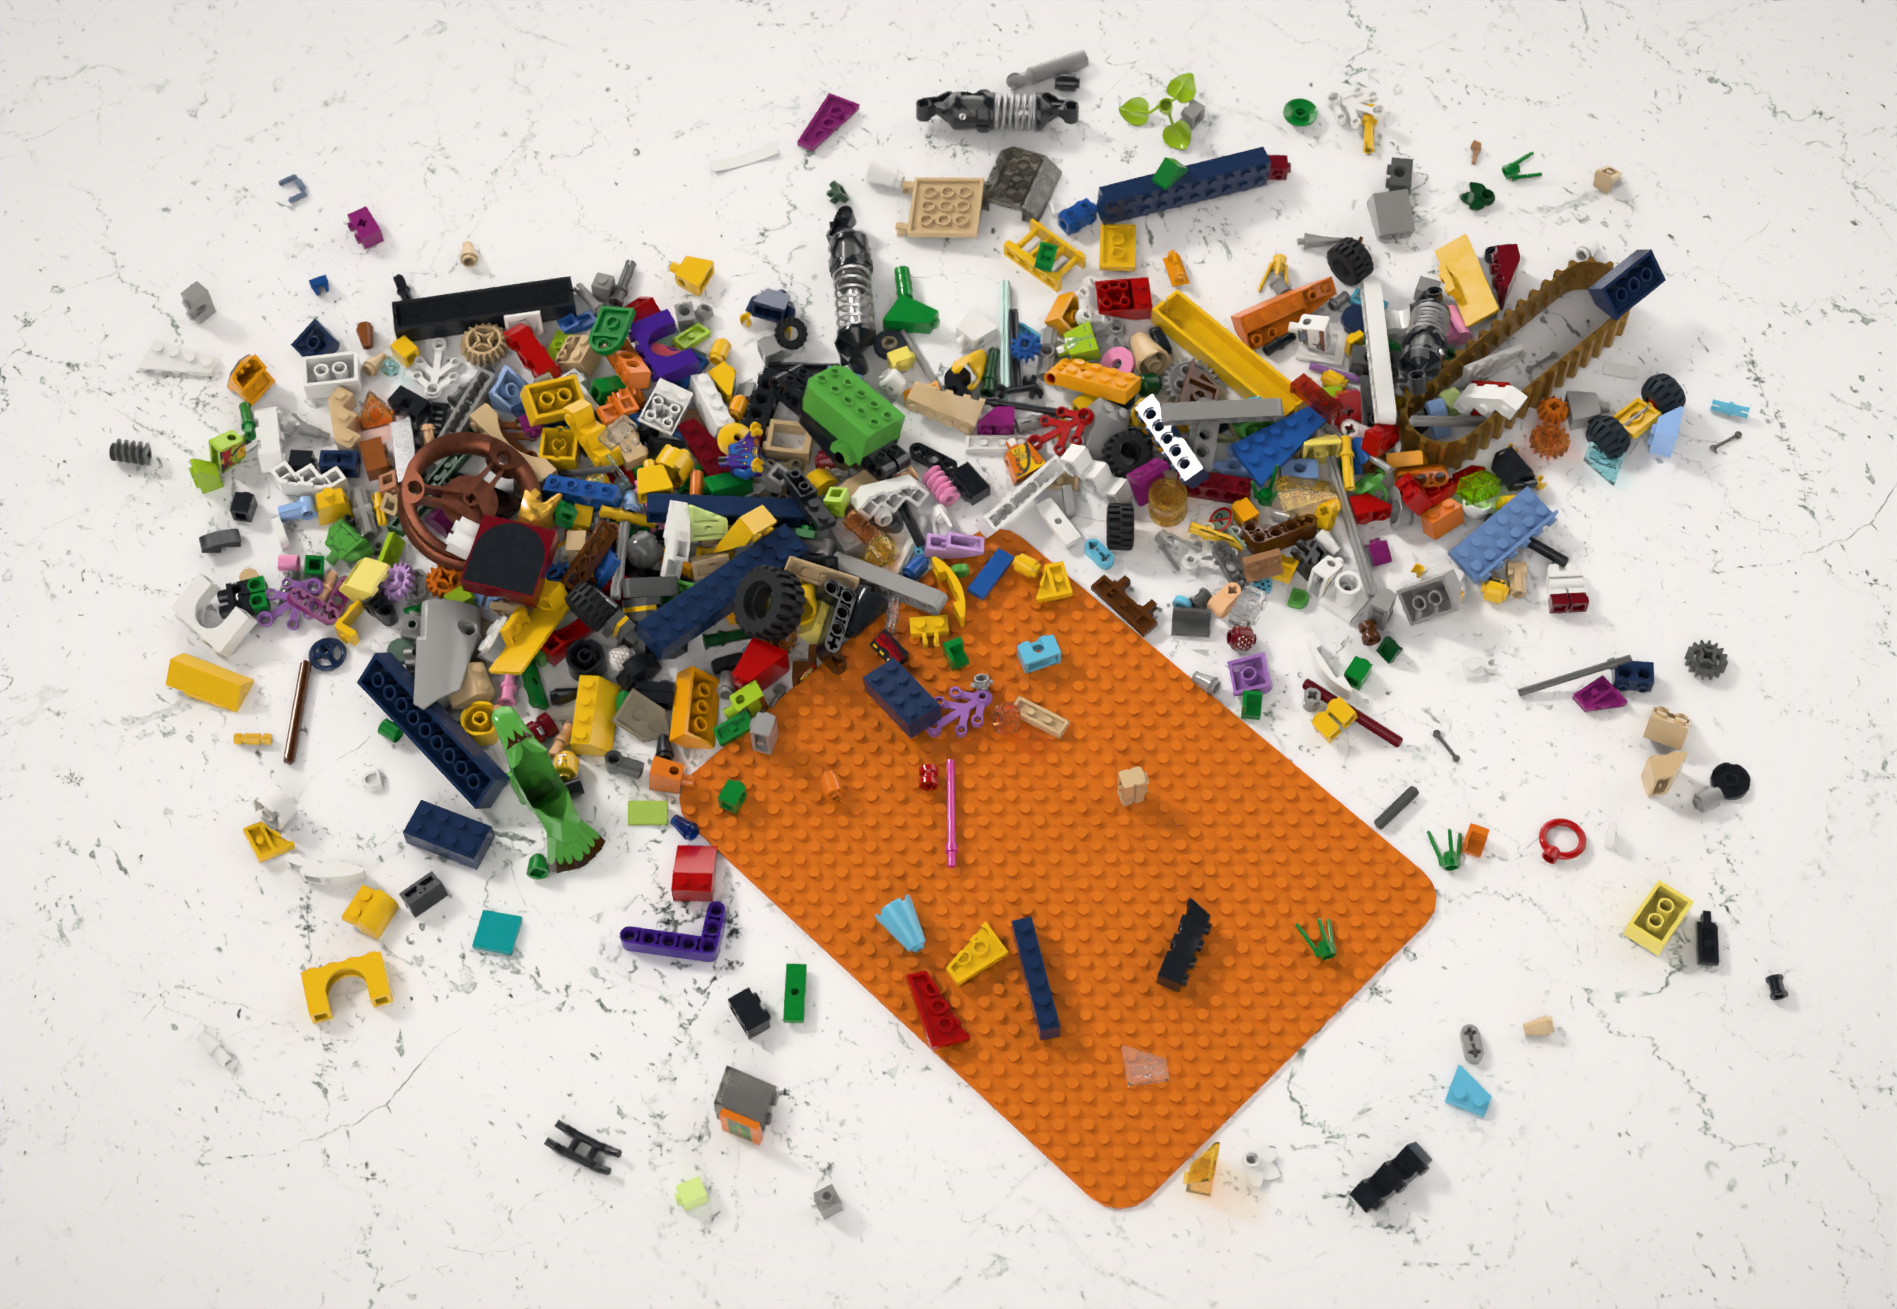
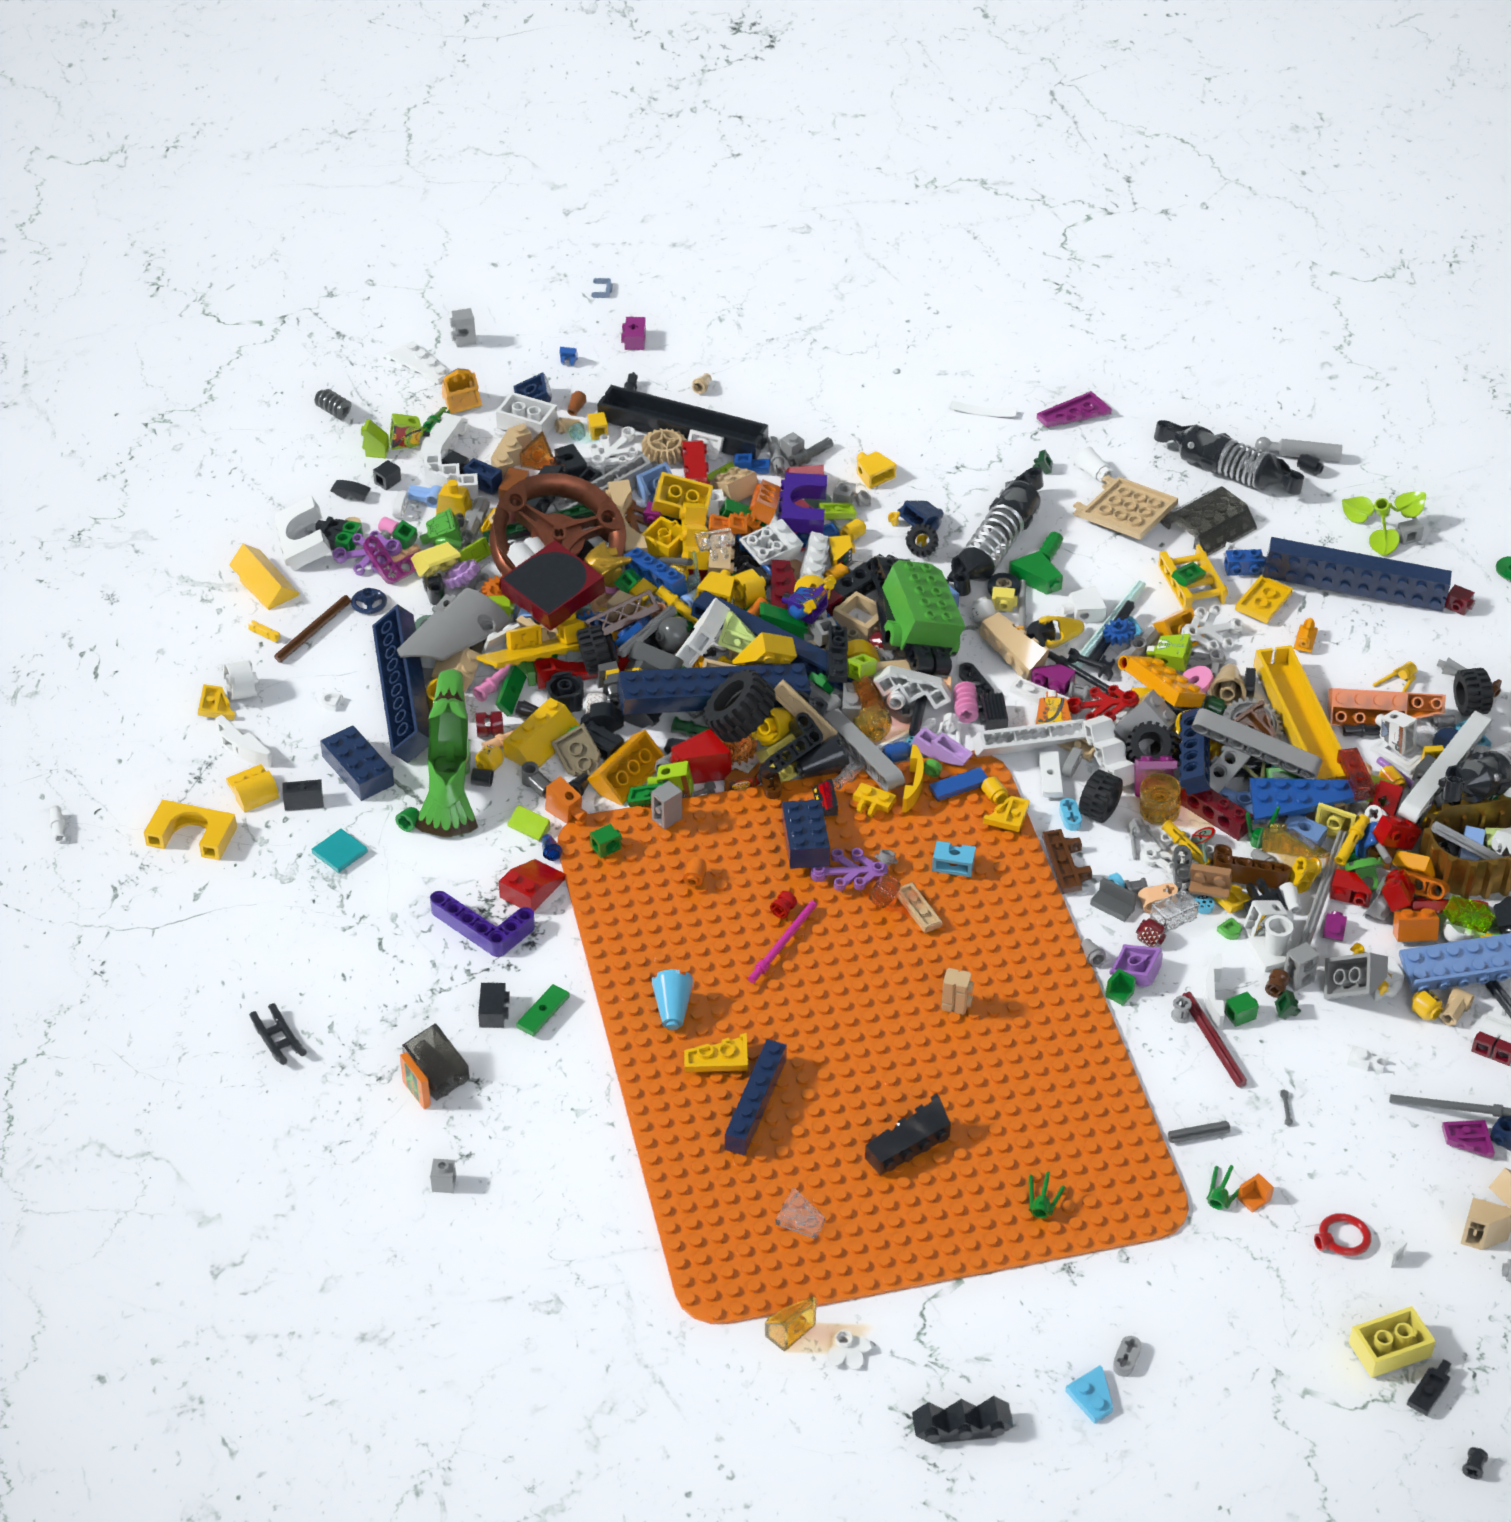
camera: 30 degrees right, 15 degrees down
(307, 429) = (476, 444): light grey piece -> none
(343, 624) = (402, 583): yellow bracket -> none
(390, 730) = (371, 672): green beam -> none
(611, 328) = (769, 469): green tile -> none
(691, 1194) = (336, 1112): yellowish green brick -> none
(769, 350) = (896, 545): light grey brick -> none
(937, 1019) = (648, 1080): red wing -> none
(955, 654) = (880, 825): green panel -> none
(990, 379) = (1077, 641): dark green pin -> none
(1124, 298) = (1238, 634): red slope -> none
(1168, 173) = (1344, 550): green slope -> none
(1244, 511) = (1229, 836): light orange brick -> none
(1279, 285) = (1394, 684): light grey bush -> none
(1340, 712) = (1178, 1033): yellow piece -> none
(1539, 1026) = (1205, 1374): tan cone -> none

